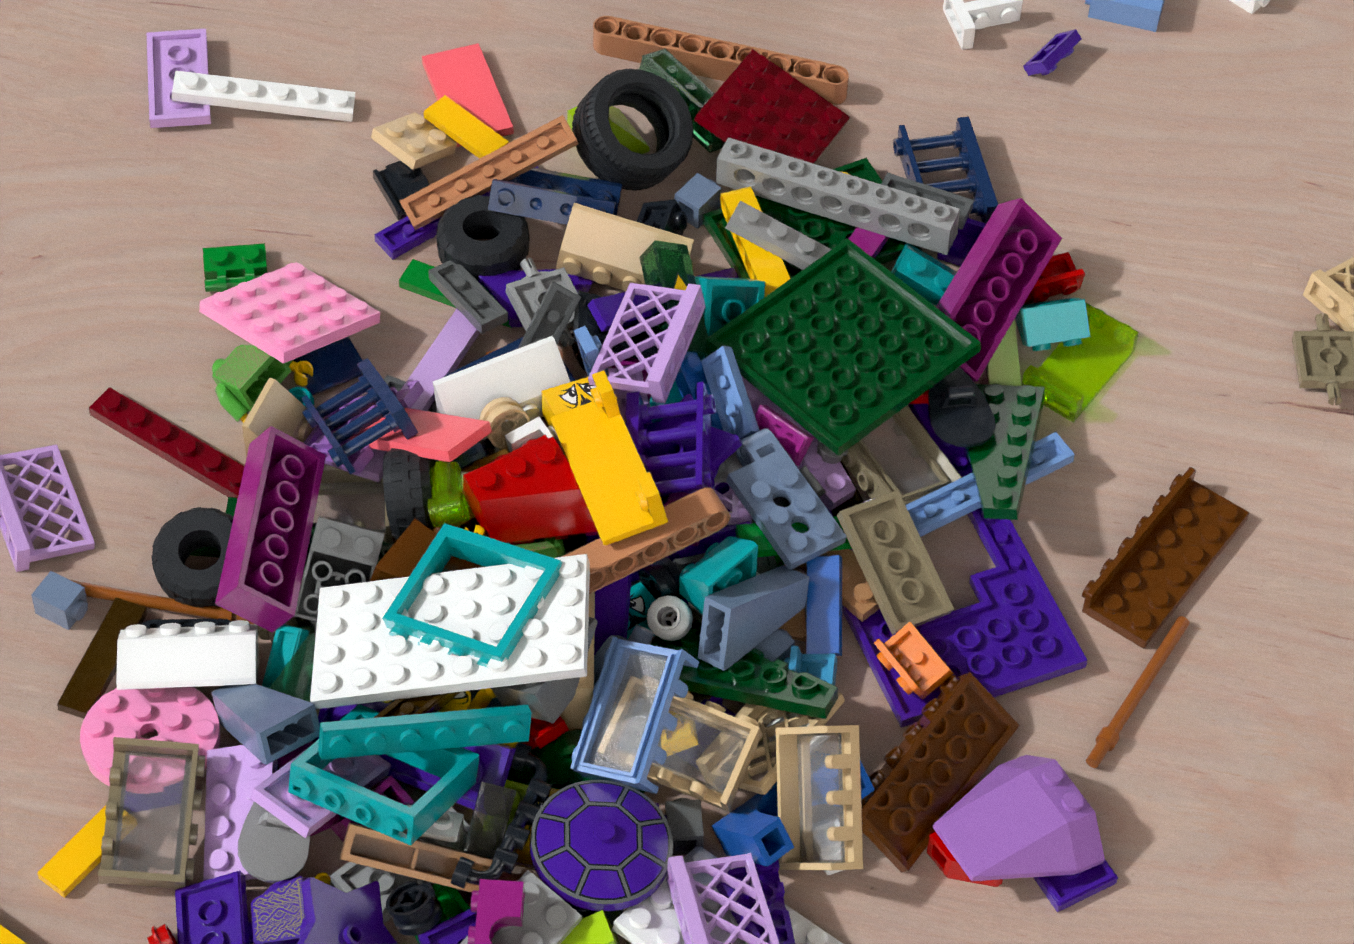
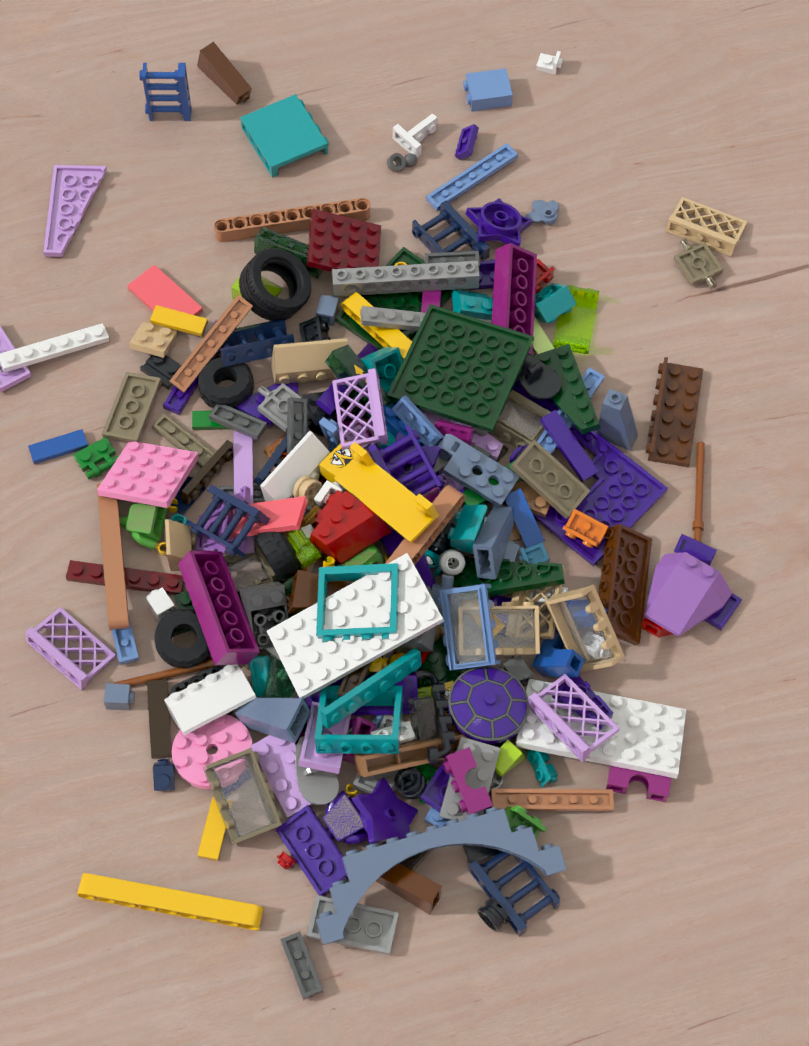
camera: 25 degrees left, 10 degrees up
(57, 738) = (163, 775): none -> dark blue bracket
(121, 520) = (125, 645): none -> medium blue plate
(164, 412) = (113, 563): none -> nougat beam
(189, 230) = (58, 446): none -> blue tile
(200, 492) = (159, 603): none -> white brick
(326, 219) = (132, 407): none -> dark tan plate
(376, 292) = (182, 438): none -> dark tan tile
(380, 347) = (204, 476): none -> dark brown plate
(950, 46) = (409, 160): none -> dark grey plate
(956, 530) = (568, 446): none -> dark purple tile
(1035, 102) = (472, 176): none -> medium blue plate
(1036, 176) = (498, 222): none -> dark purple plate
(1053, 522) = (617, 420): none -> sand blue slope
(1083, 771) = (695, 548): none -> dark purple tile
(1119, 194) = (544, 212): none -> sand blue plate

